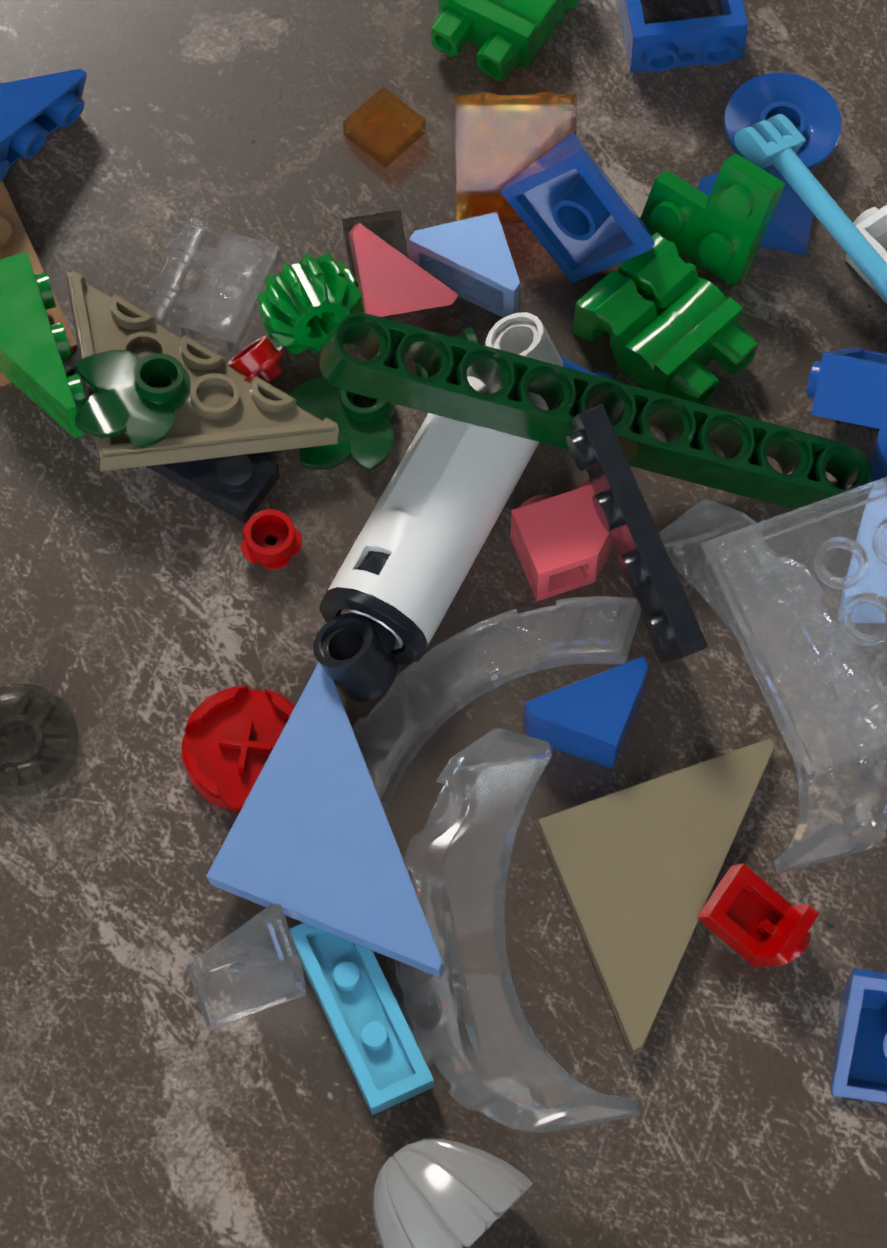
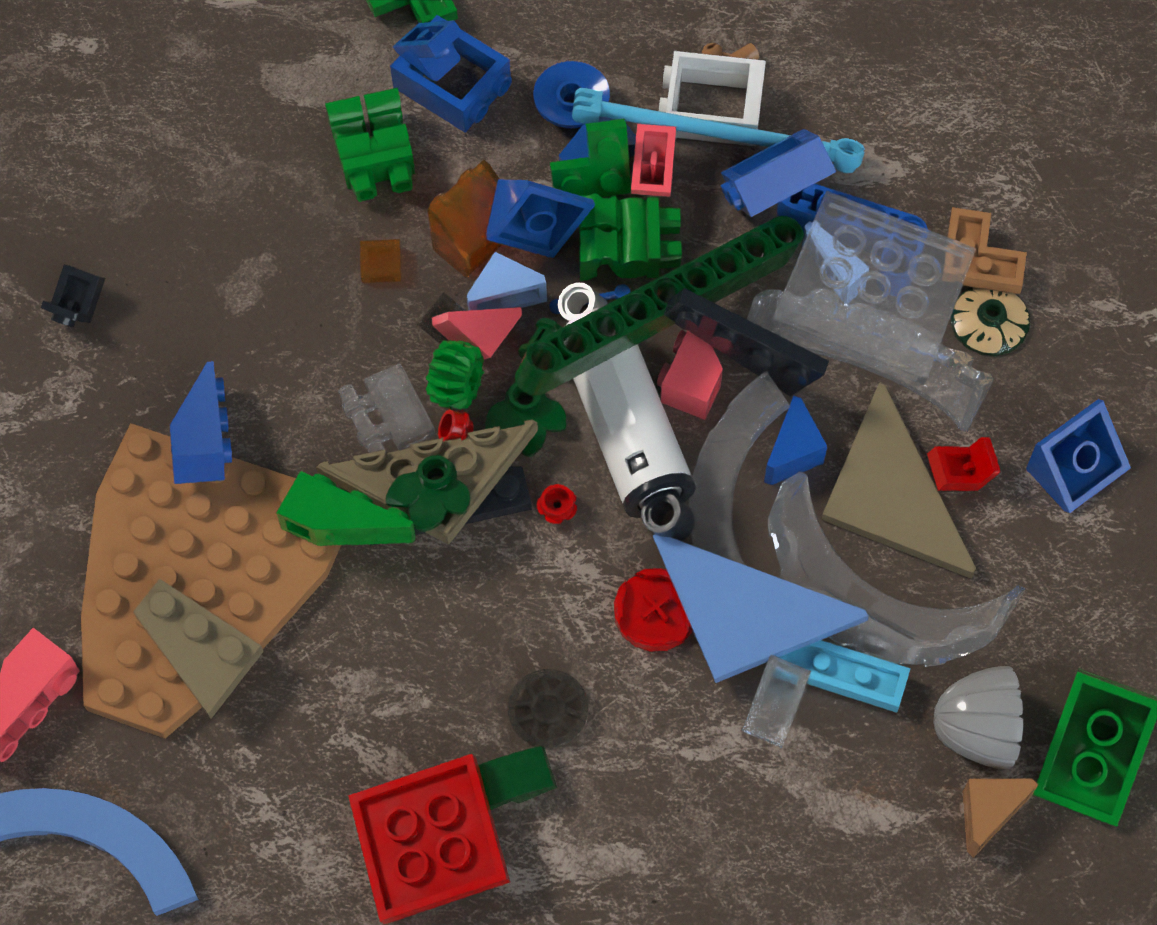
camera: 45 degrees left, 0 degrees up
(783, 268) = (653, 160): none -> coral slope

